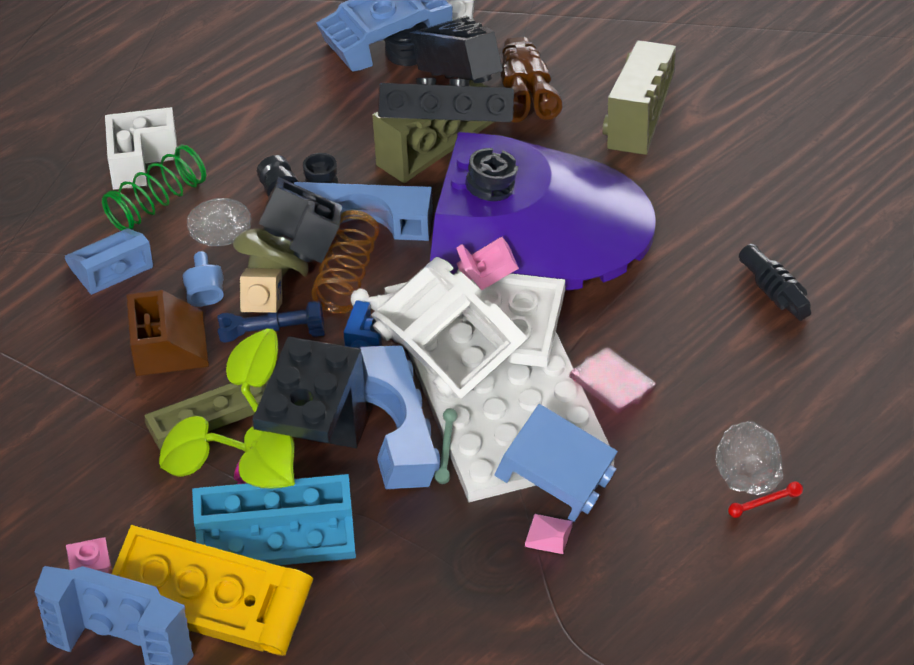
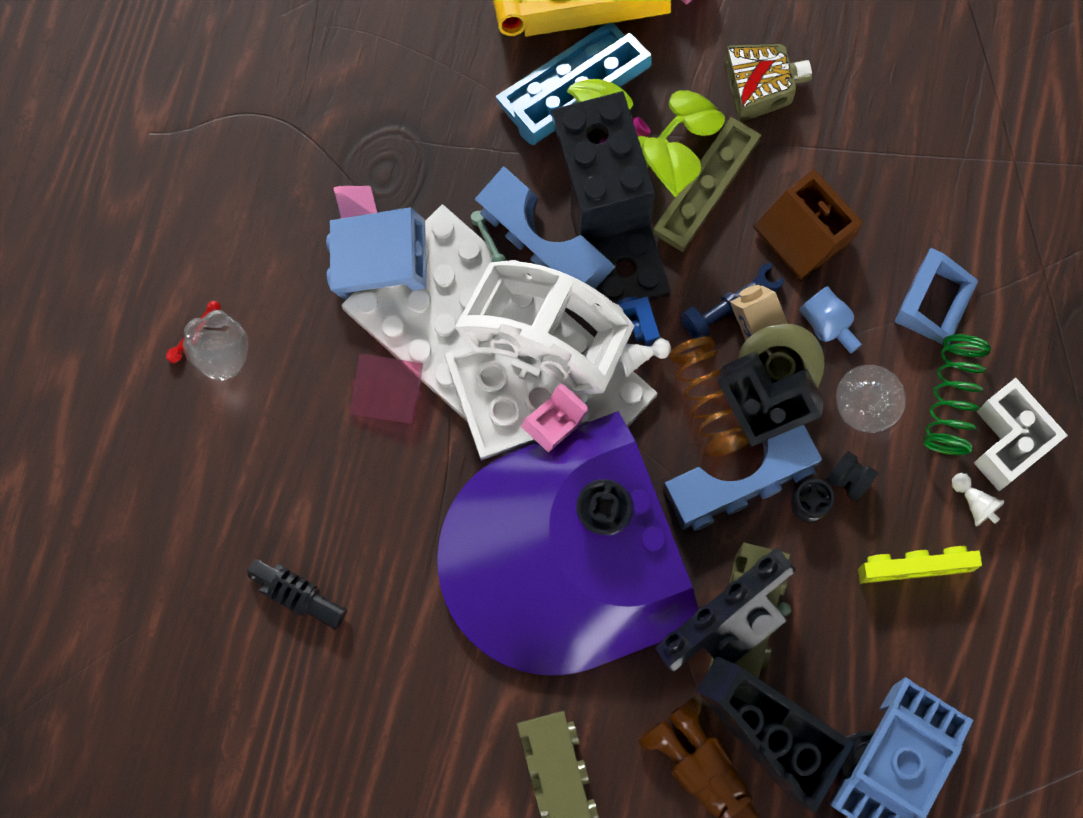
camera: 150 degrees right, 30 degrees up
(104, 458) = (762, 78): none -> torso
(196, 129) = (980, 503): none -> white piece
(277, 113) = (919, 564): none -> neon yellow plate

